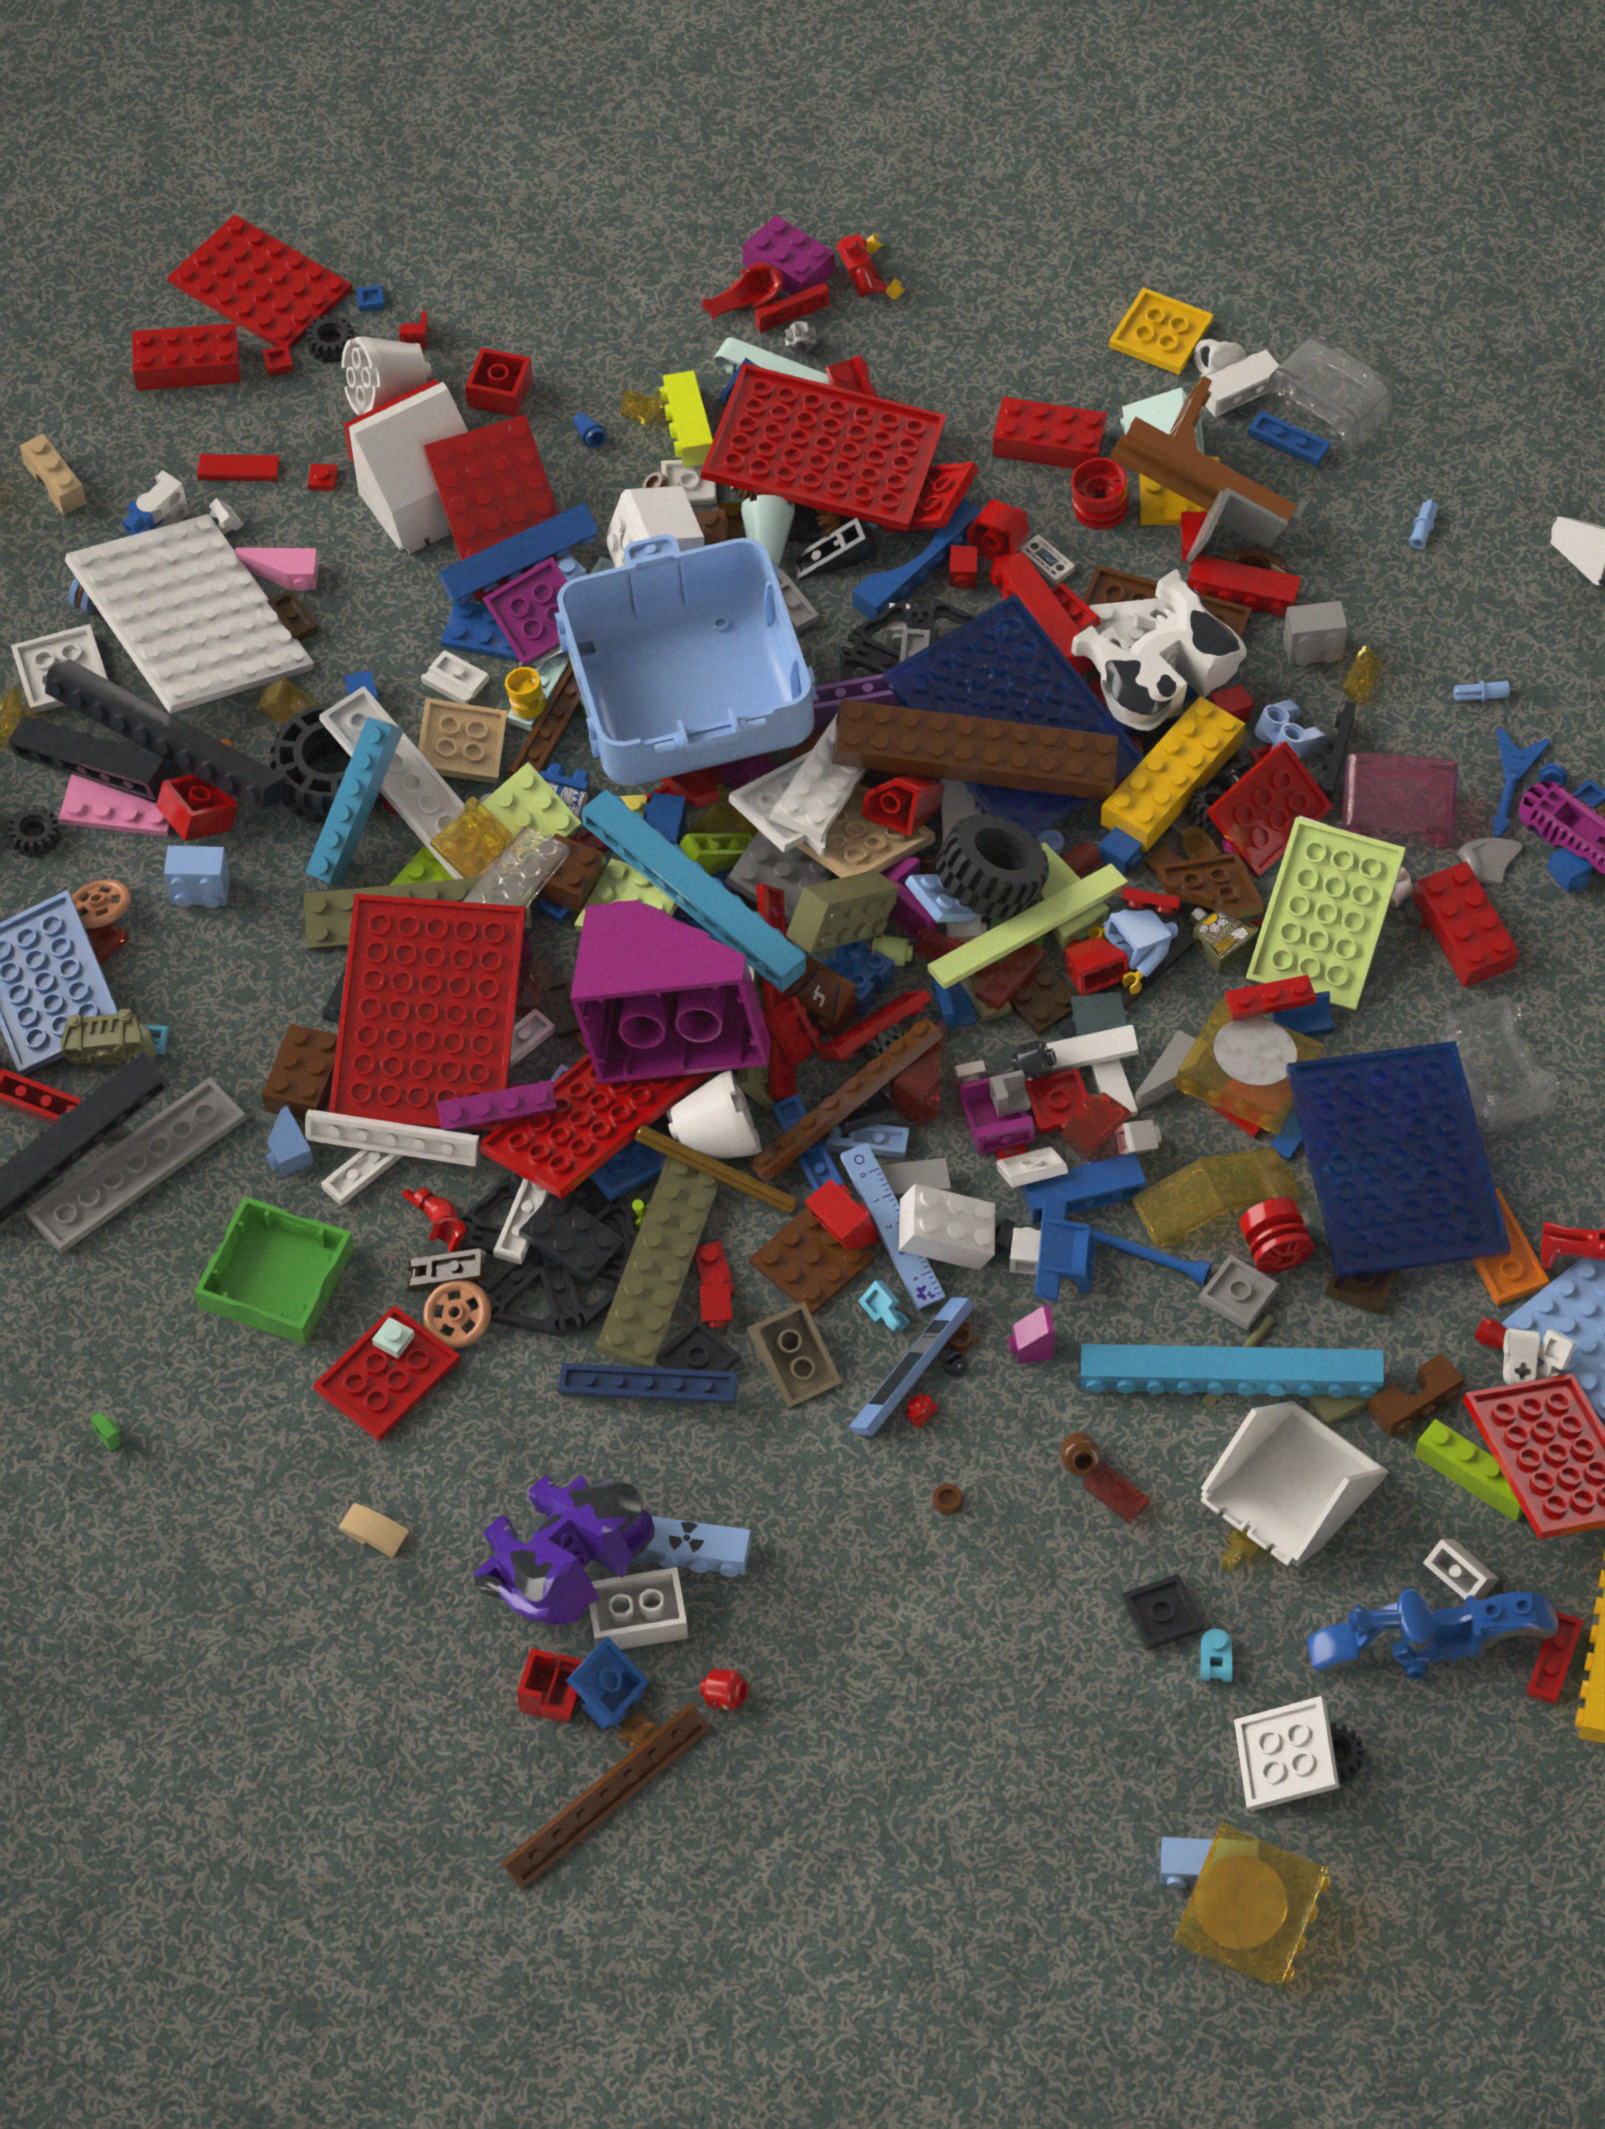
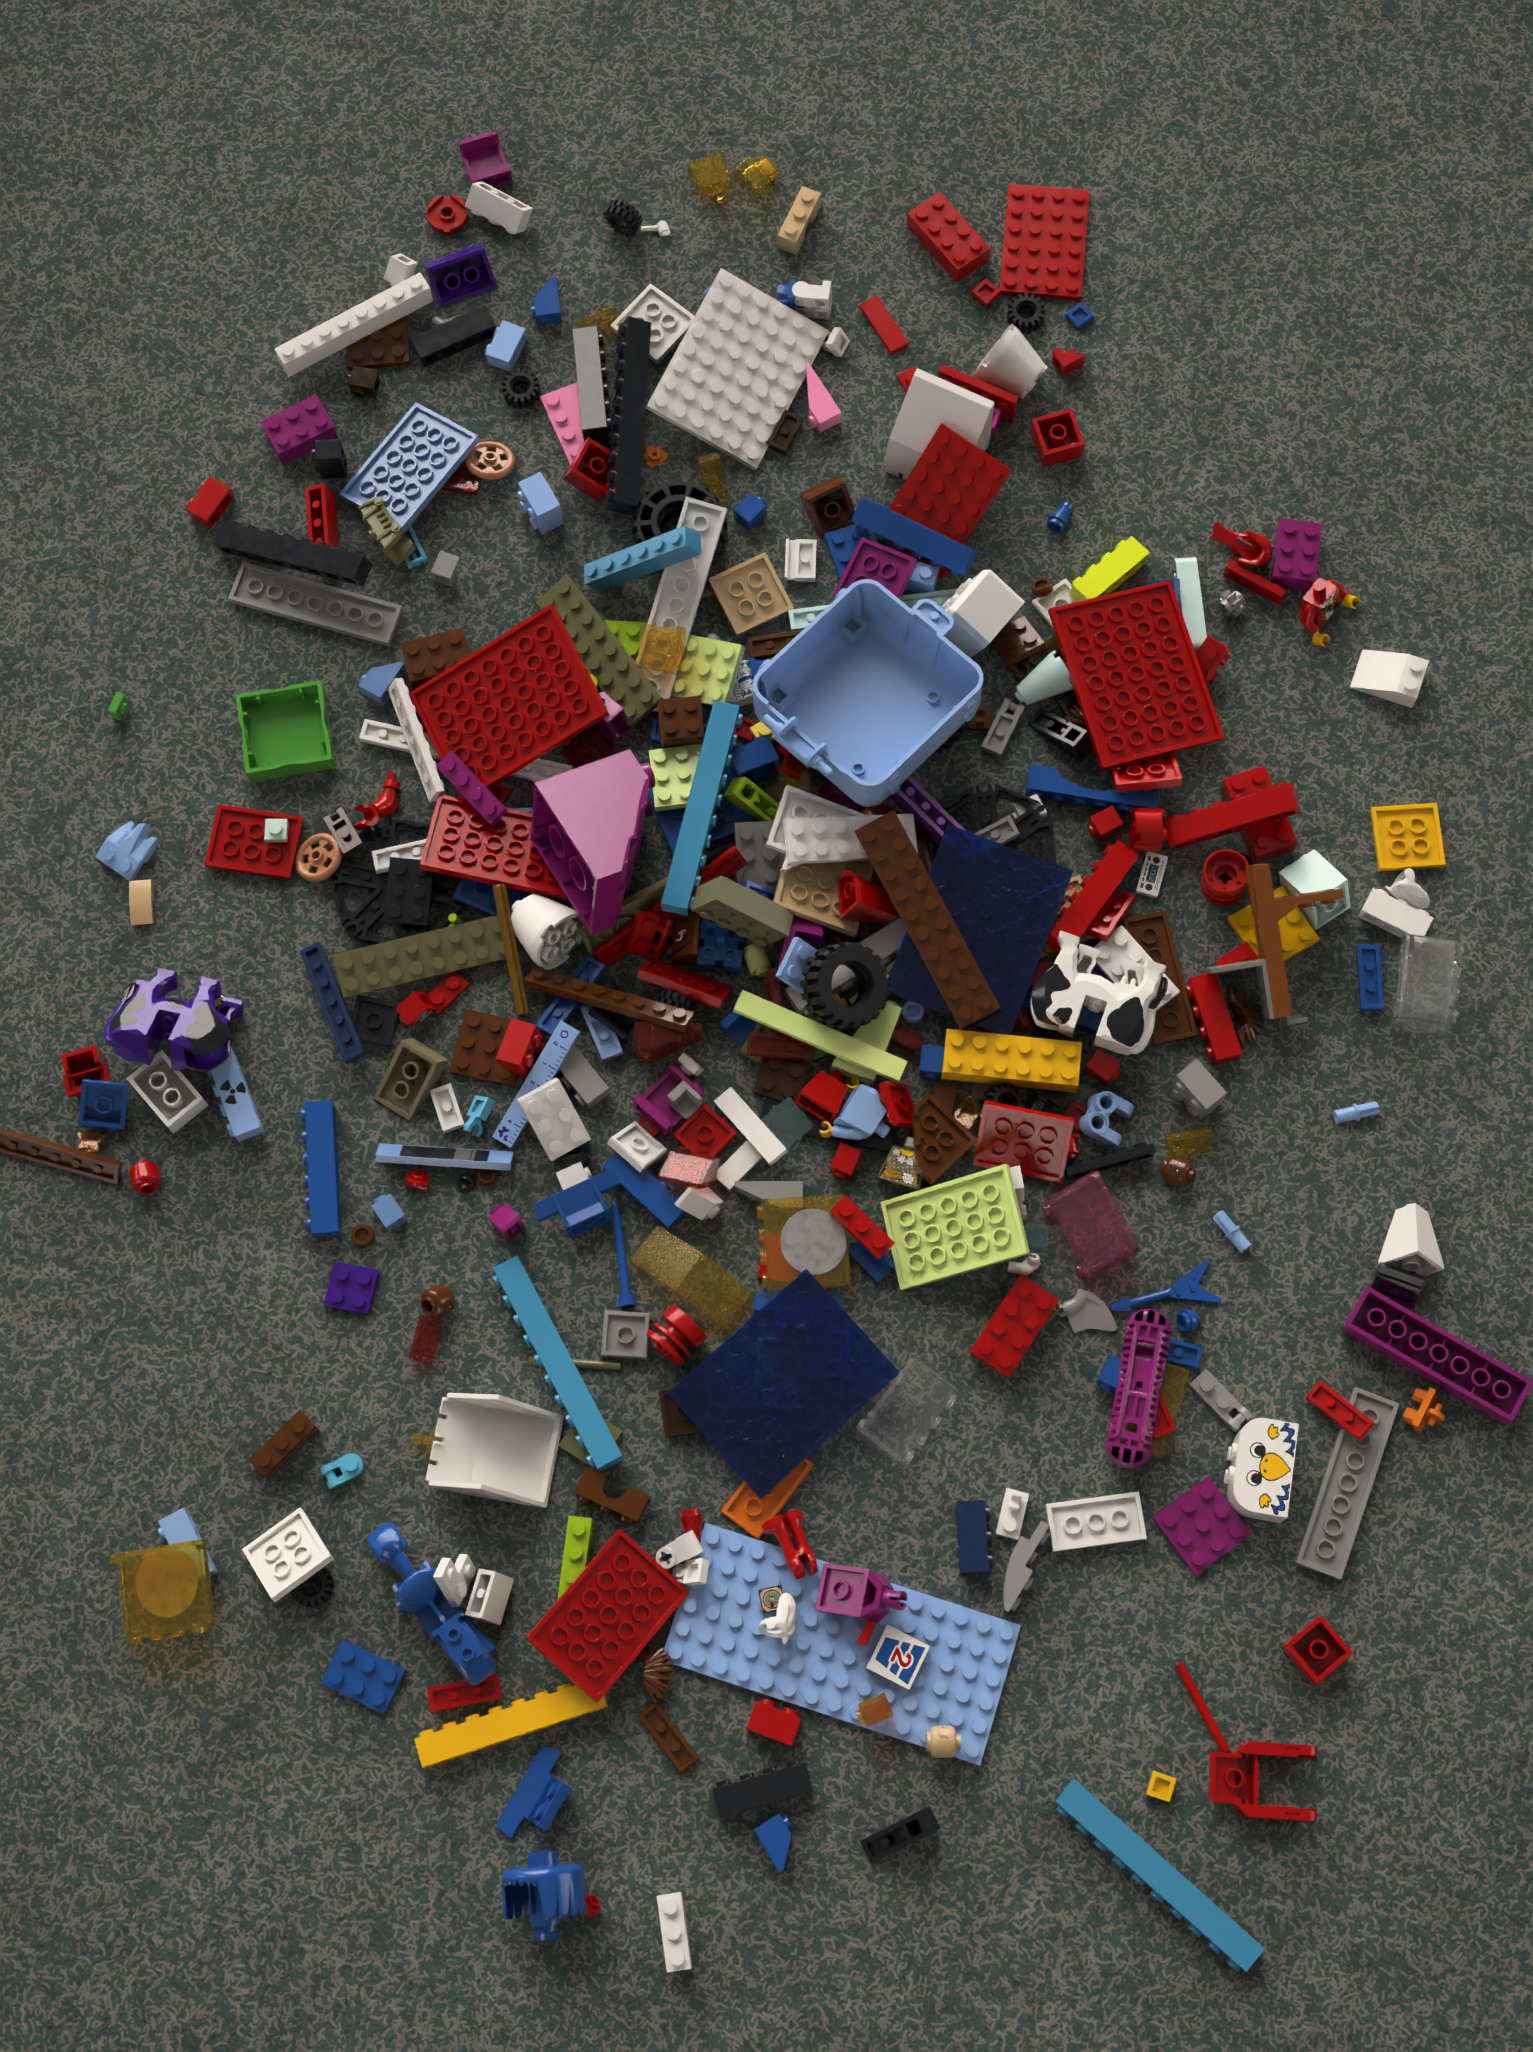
camera: 60 degrees right, 15 degrees up
(198, 1012) = (444, 568): none -> light grey panel
(295, 1512) = (128, 849): none -> light blue plate
(412, 619) = (828, 505): none -> reddish brown slope
(520, 870) = (645, 692): clear plate -> none
(525, 692) = (804, 608): yellow wheel -> none
(640, 407) = (1101, 537): clear yellow bracket -> none
(841, 1496) = (322, 1169): none -> blue brick
(854, 1335) = (447, 1108): none -> white plate
(940, 1454) = (388, 1211): none -> medium blue brick
(979, 253) = (1390, 676): none -> white slope
(1004, 1541) = (351, 1288): none -> dark purple plate
(1034, 1060) = (718, 1101): black head -> none
(1044, 441) = (1232, 816): none -> red brick
(1150, 1698) = (283, 1444): none -> reddish brown brick
(1162, 1612) = (354, 1417): black plate -> none
(1179, 985) = (845, 1162): none -> red brick
(1388, 700) = (1178, 1171): none -> reddish brown head
(1421, 1583) = (455, 1578): none -> white plate
(1473, 1755) = (363, 1676): none -> blue plate

